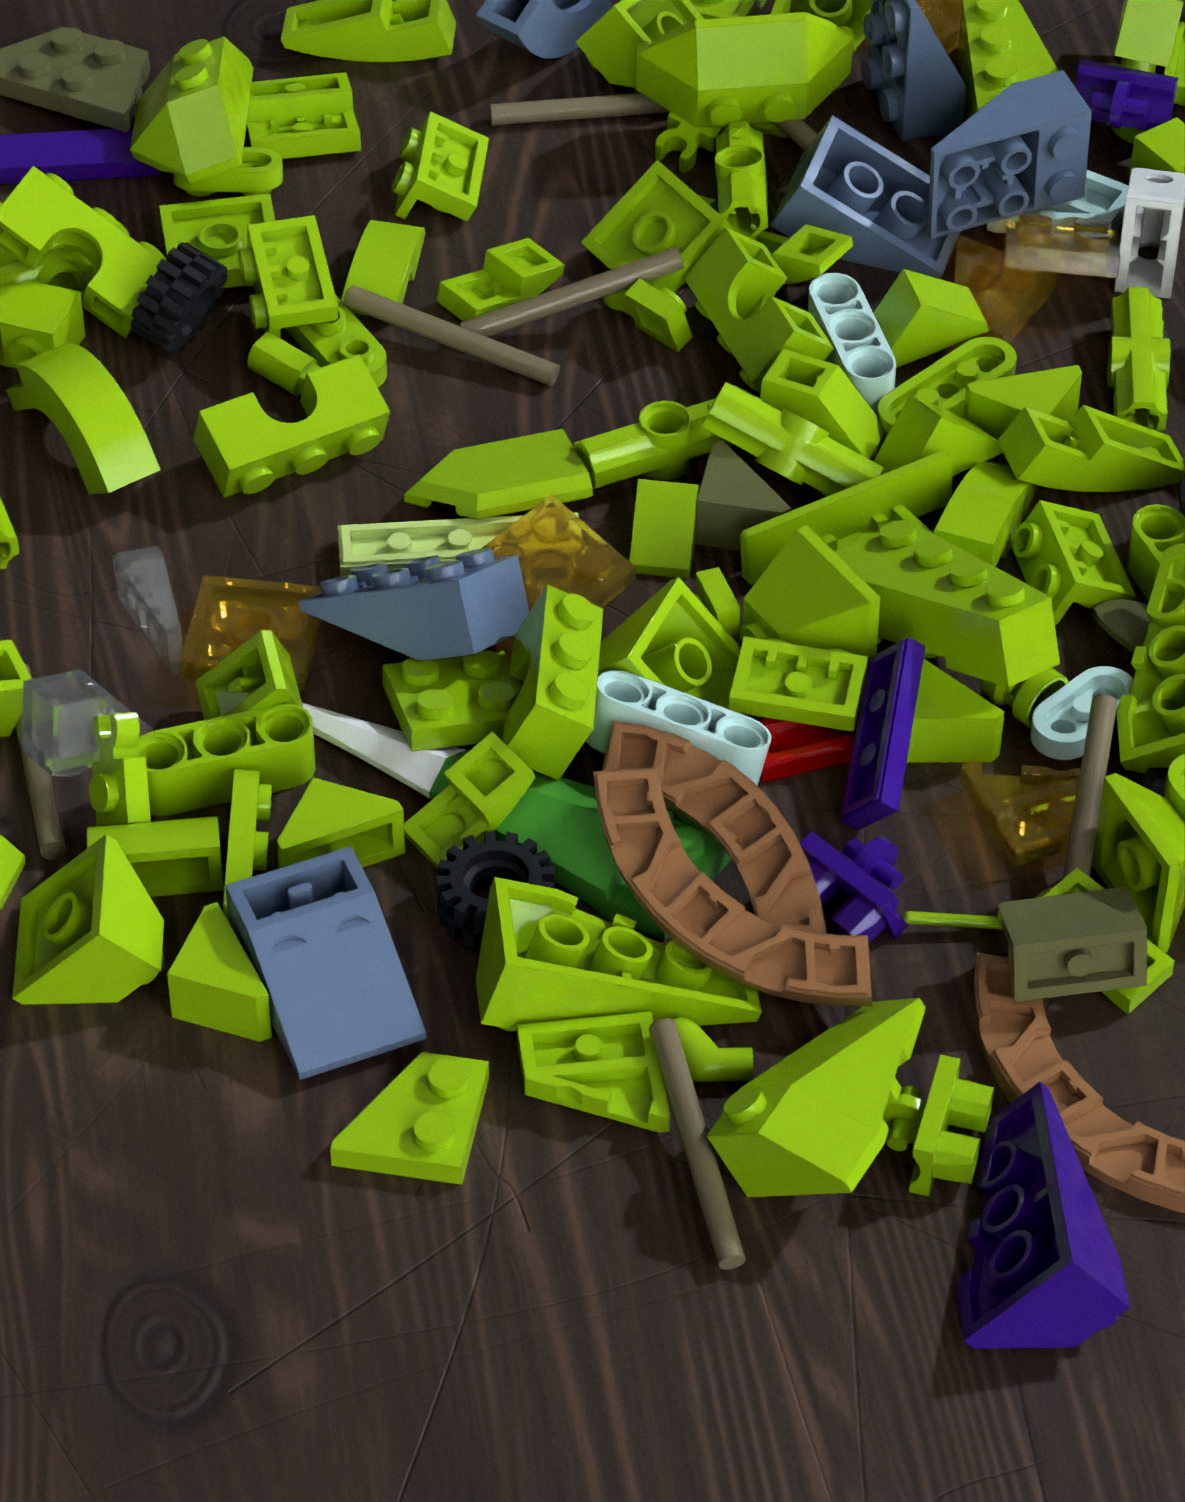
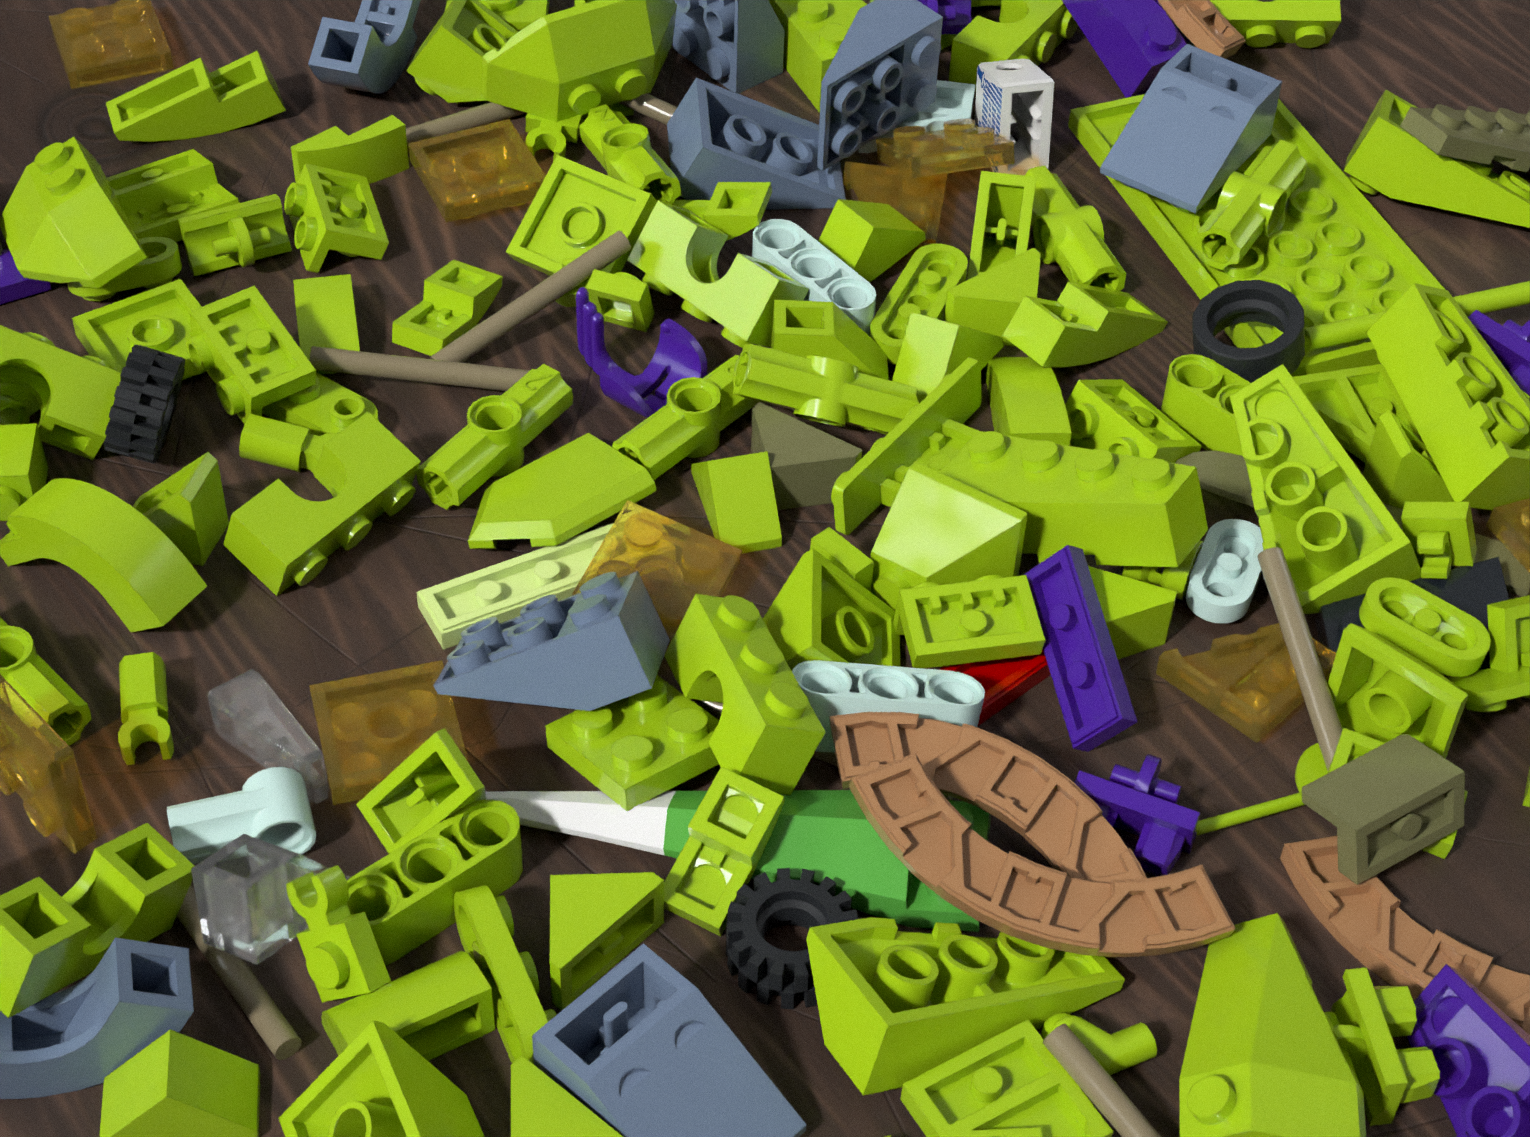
camera: 25 degrees left, 0 degrees up
(66, 554) = (143, 705): none -> lime bar
(123, 666) = (269, 808): none -> light aqua piece
(171, 403) = (189, 508): none -> lime slope
(340, 164) = (234, 235): none -> lime hips
(476, 408) = (494, 436): none -> lime piece
(501, 115) = (370, 152): none -> lime slope
(595, 155) = (477, 170): none -> clear yellow plate
(681, 383) = (675, 354): none -> dark purple helmet
(1072, 330) = (1000, 219): none -> lime slope

